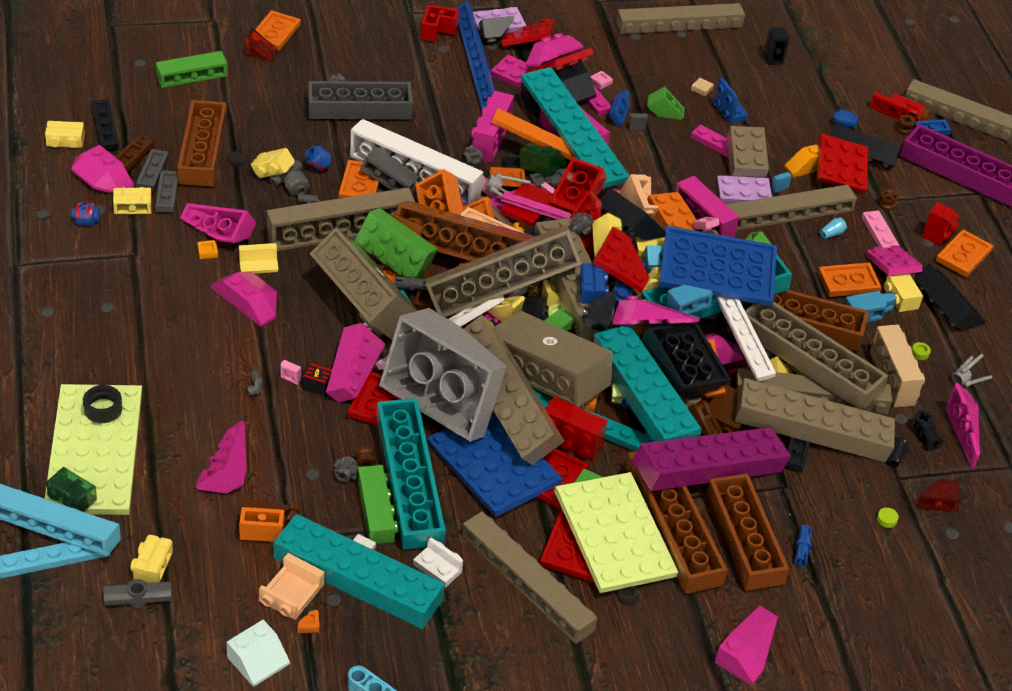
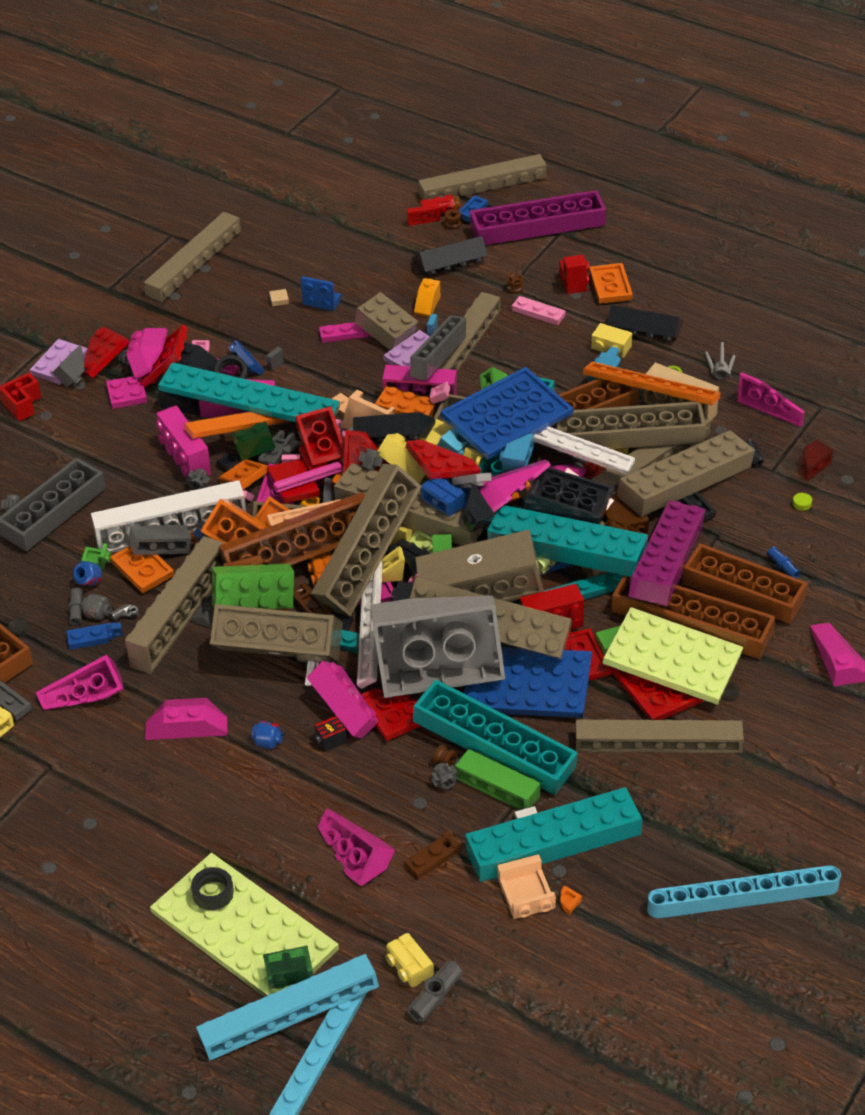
camera: 40 degrees left, 0 degrees up
(207, 249) = (101, 714): light orange tile -> none
(255, 389) = (290, 773): dark grey arm -> none
(257, 653) = (571, 950): light aqua slope -> none
(258, 258) = (153, 687): light yellow panel -> none
(261, 524) = (449, 864): orange brick -> none
(269, 197) = (93, 635): none -> blue hinge
(272, 163) = (61, 605): light yellow brick -> none
(278, 345) = (266, 734): none -> blue head
(290, 372) = (304, 745): bright pink tile -> none
(340, 153) = (98, 556): none -> bright green bracket
(410, 283) = (302, 603): dark grey pin -> none
(439, 562) = (591, 780): white bracket -> none
(475, 53) = (91, 402): blue plate -> none
(494, 183) = (252, 484): light grey plant -> none
(595, 96) = (232, 360): none -> black tyre
(623, 289) = (475, 479): none -> light grey plate
(665, 104) = (275, 331): bright green slope -> none
(743, 190) = (437, 347): none -> dark grey brick
(776, 46) = (294, 225): black brick -> none
(833, 228) = (509, 332): medium azure cone -> none
(842, 163) = (457, 279): red plate -> none
(846, 119) = (410, 245): blue brick -> none
(849, 279) = (567, 360): orange plate -> none
(873, 337) = (652, 383): none -> orange tile
(894, 260) = (580, 323): dark pink plate -> none
(924, 429) = (749, 423): black connector -> none

